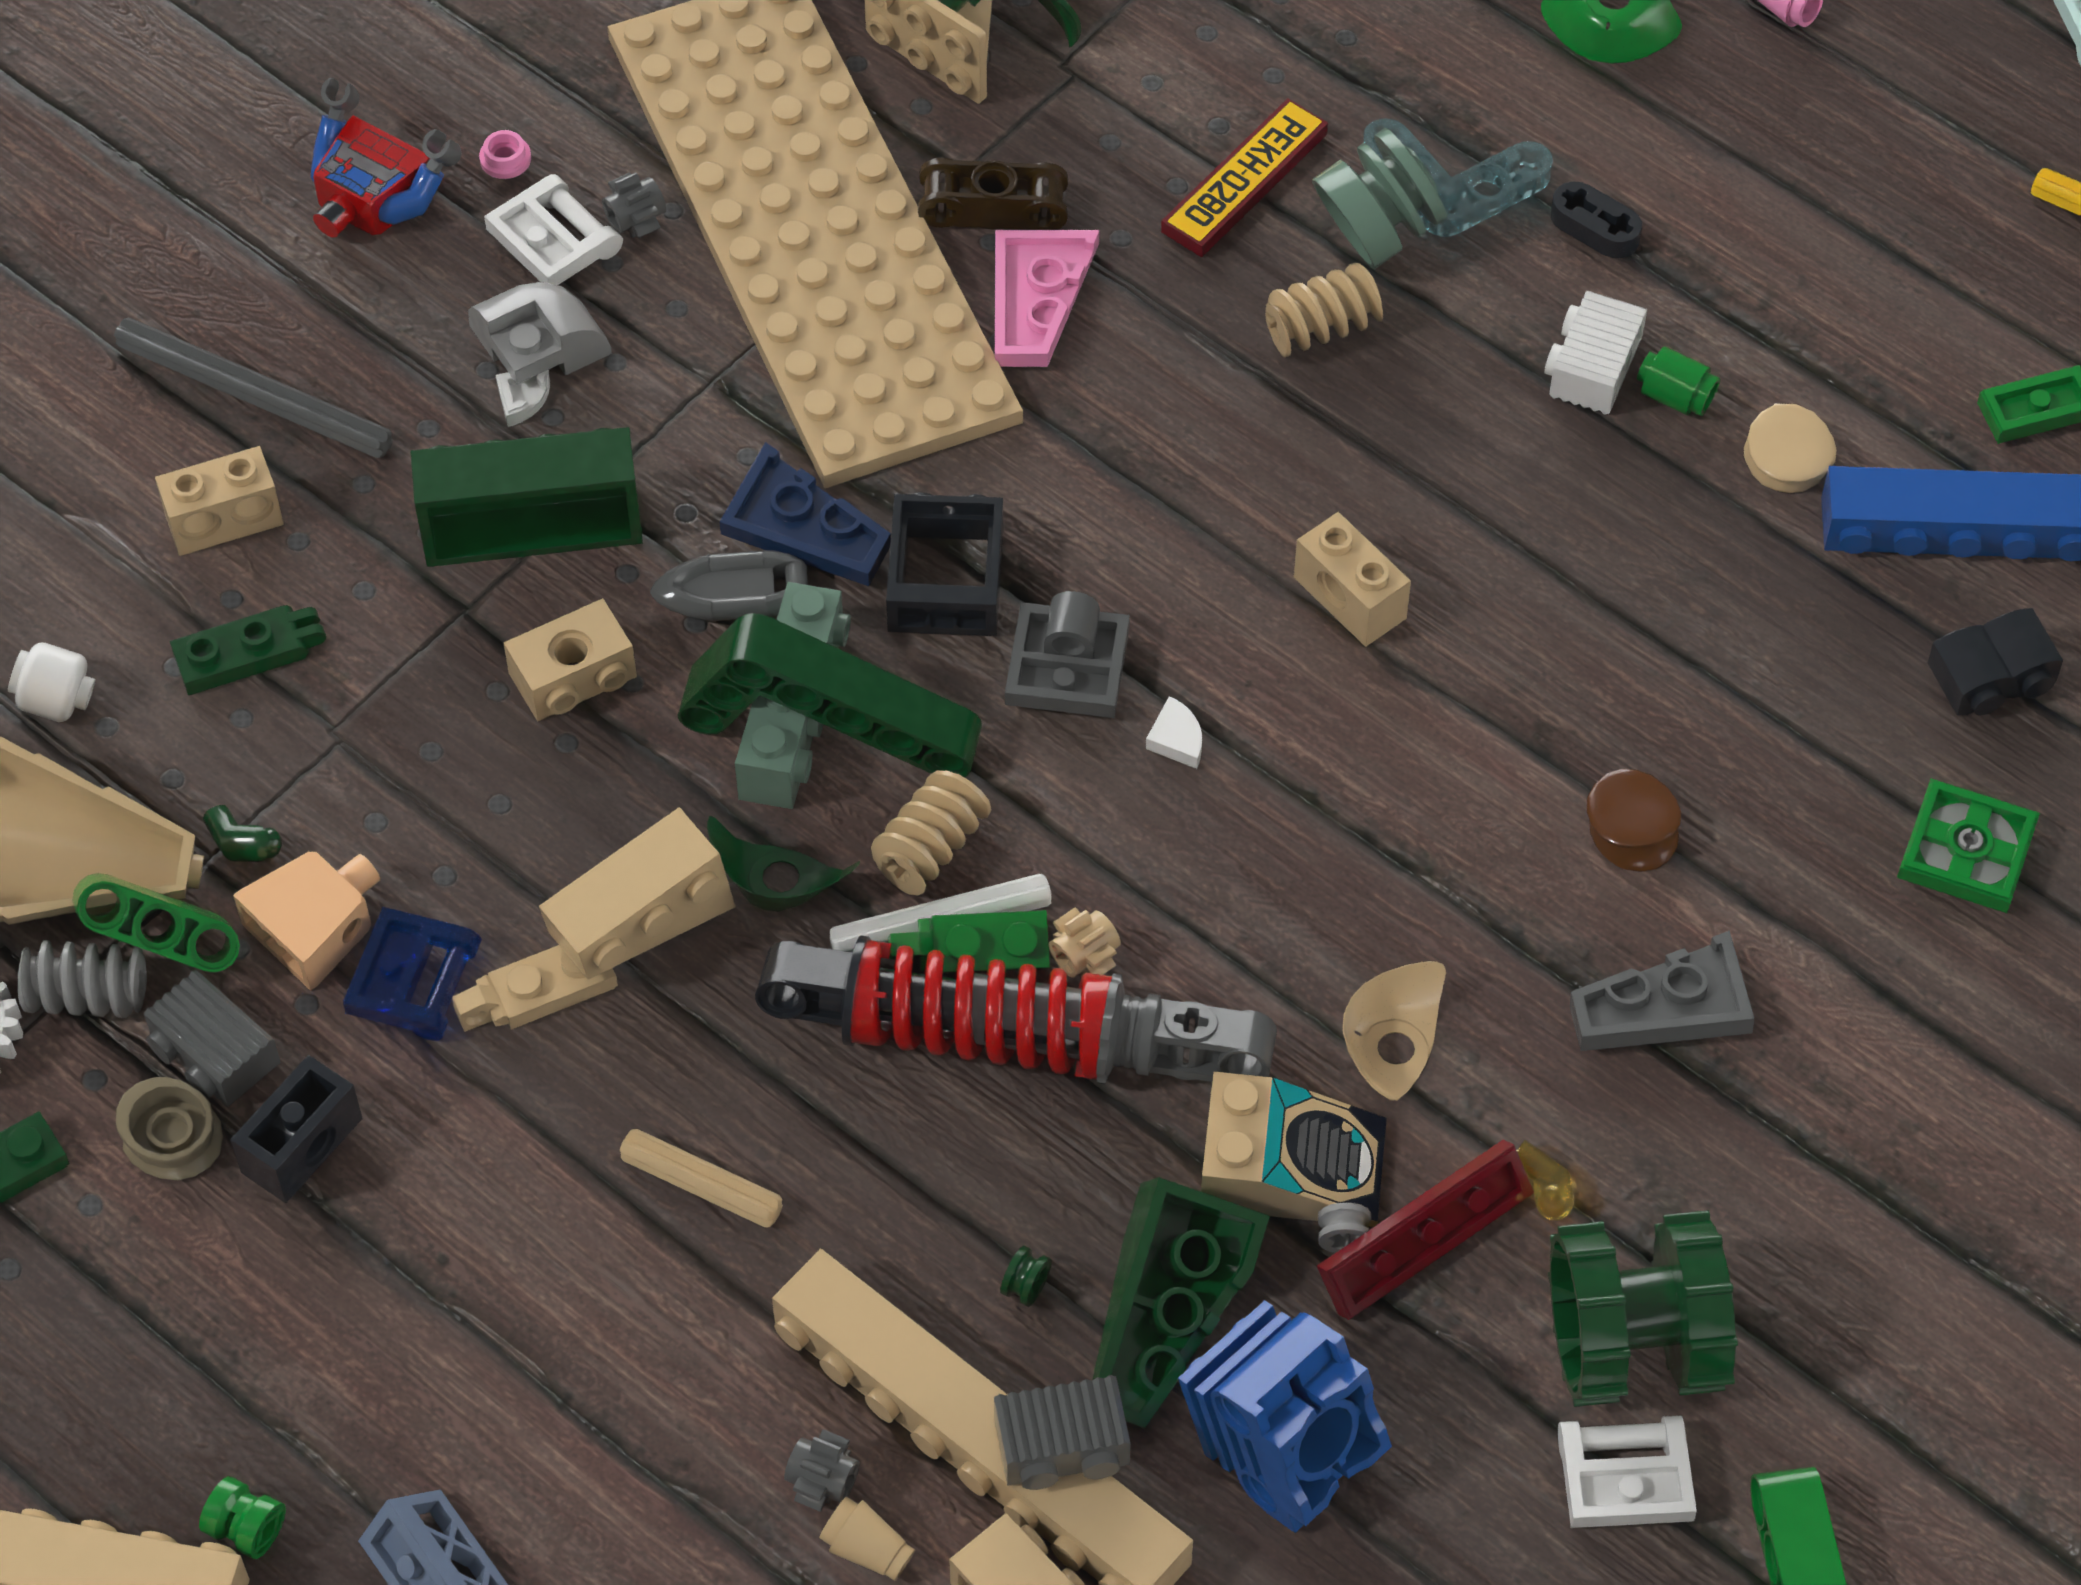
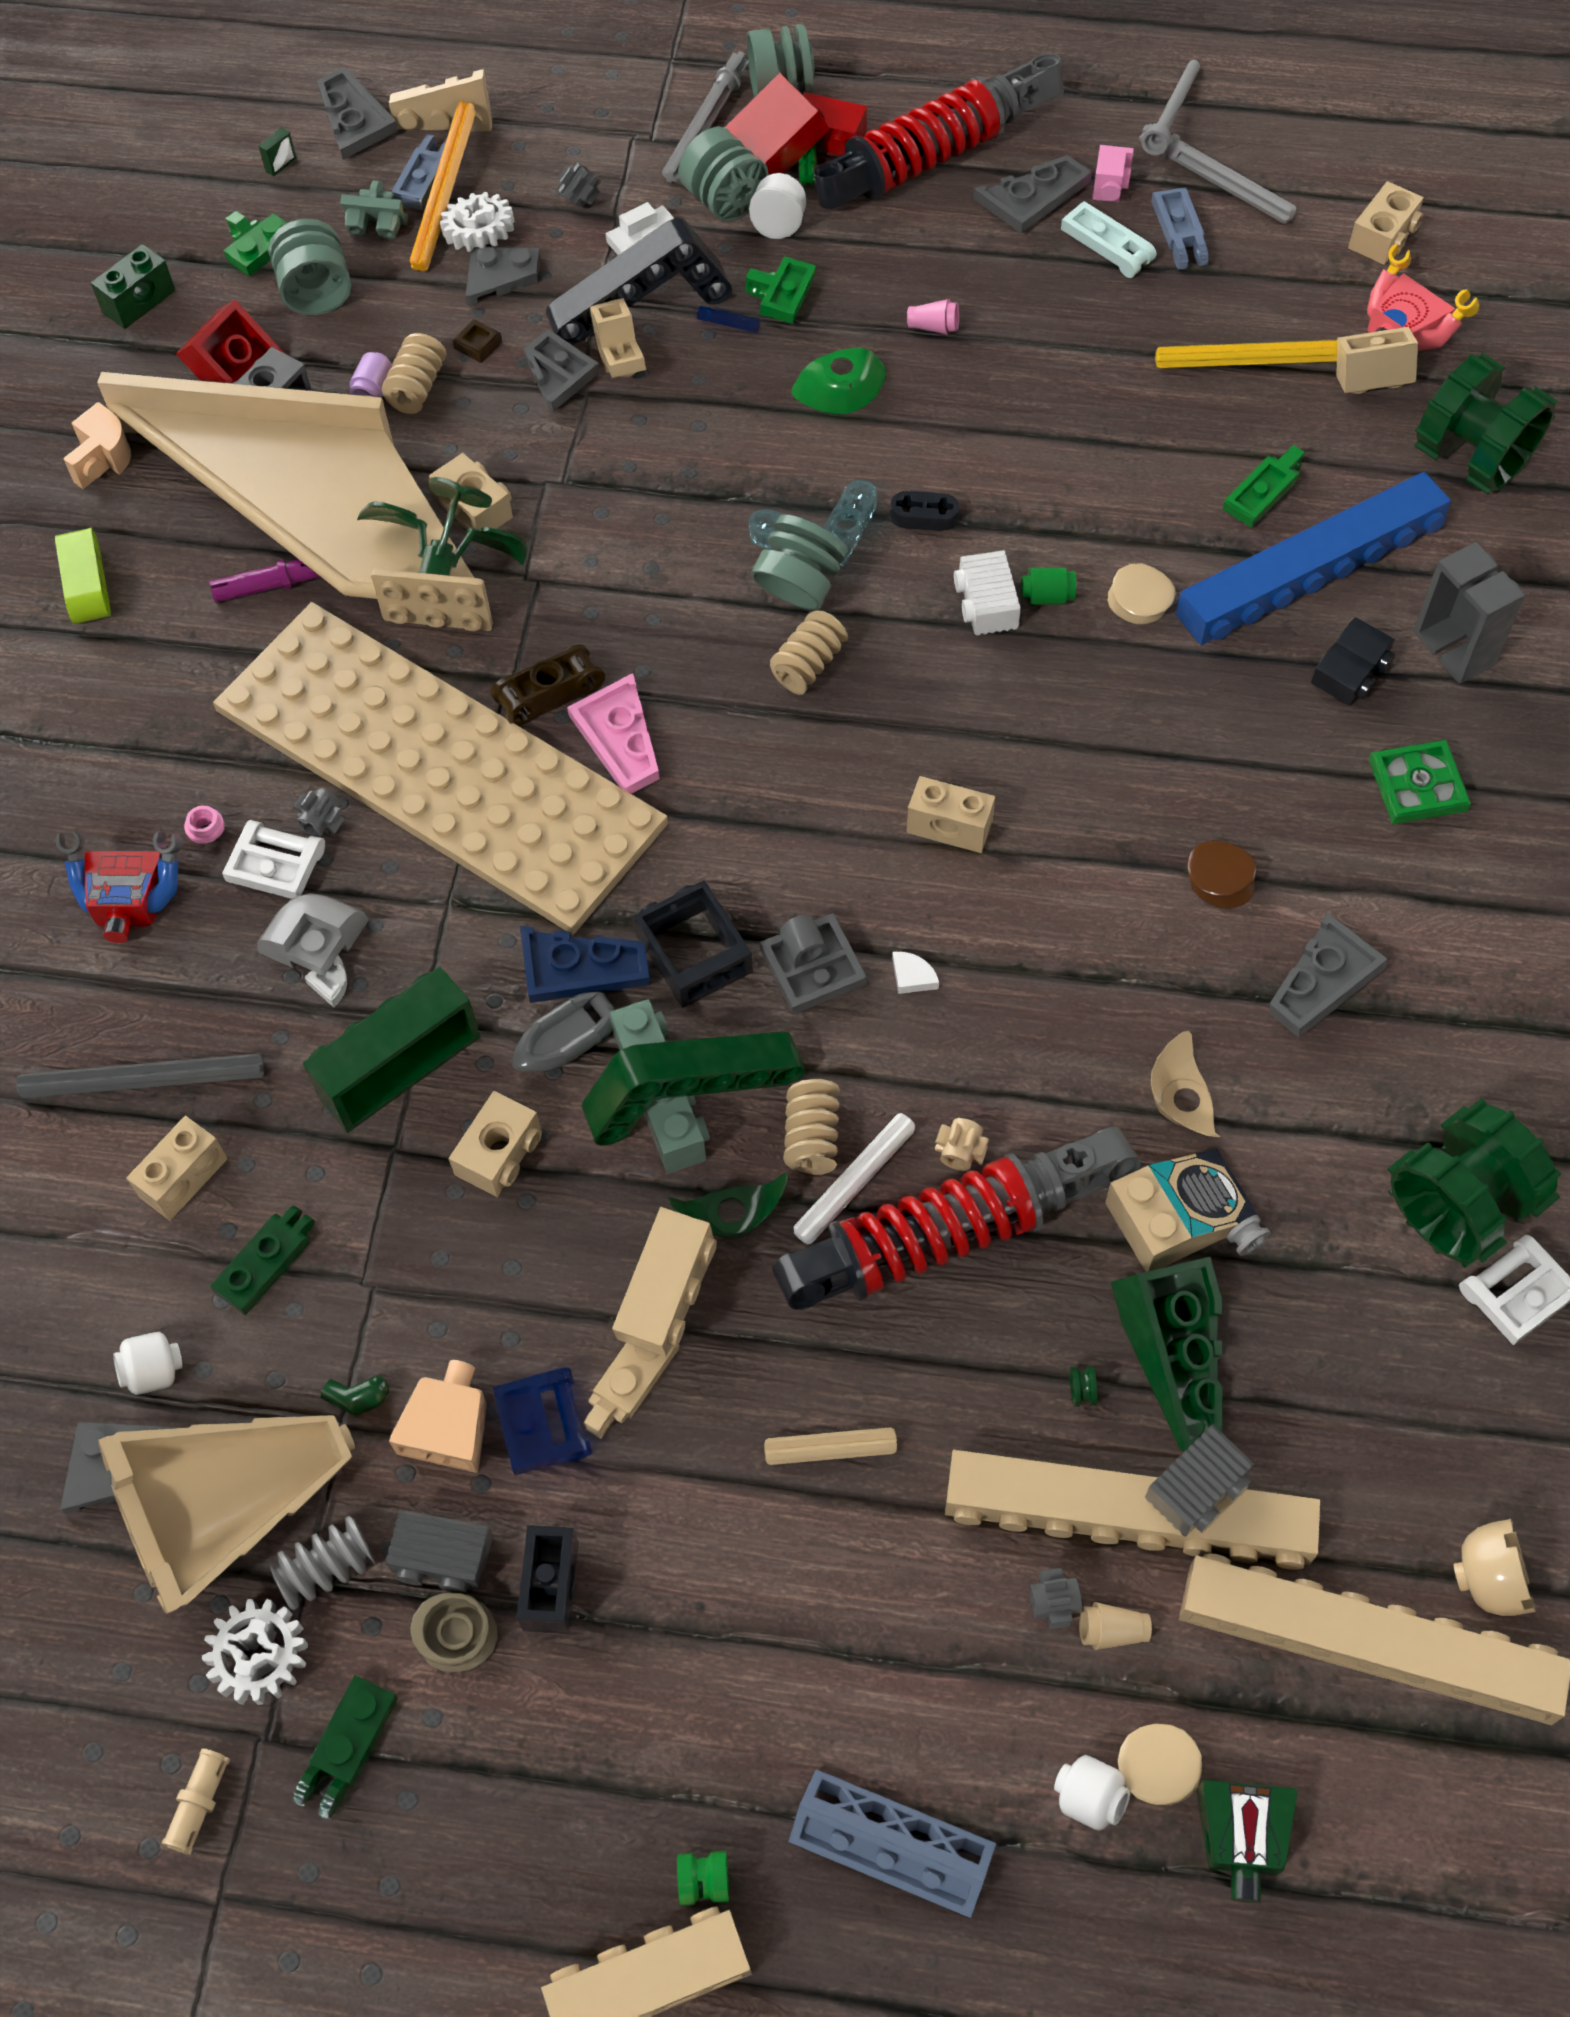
camera: 30 degrees left, 5 degrees up
(180, 938) = (330, 1490): green beam -> none
(1005, 936) = (897, 1177): green hinge -> none
(1244, 177) = (693, 593): tile -> none
(1285, 1412) = (1317, 1380): blue piece -> none
(1425, 1229) = (1297, 1207): dark red tile -> none
(1550, 1182) = (1340, 1130): clear yellow arm -> none

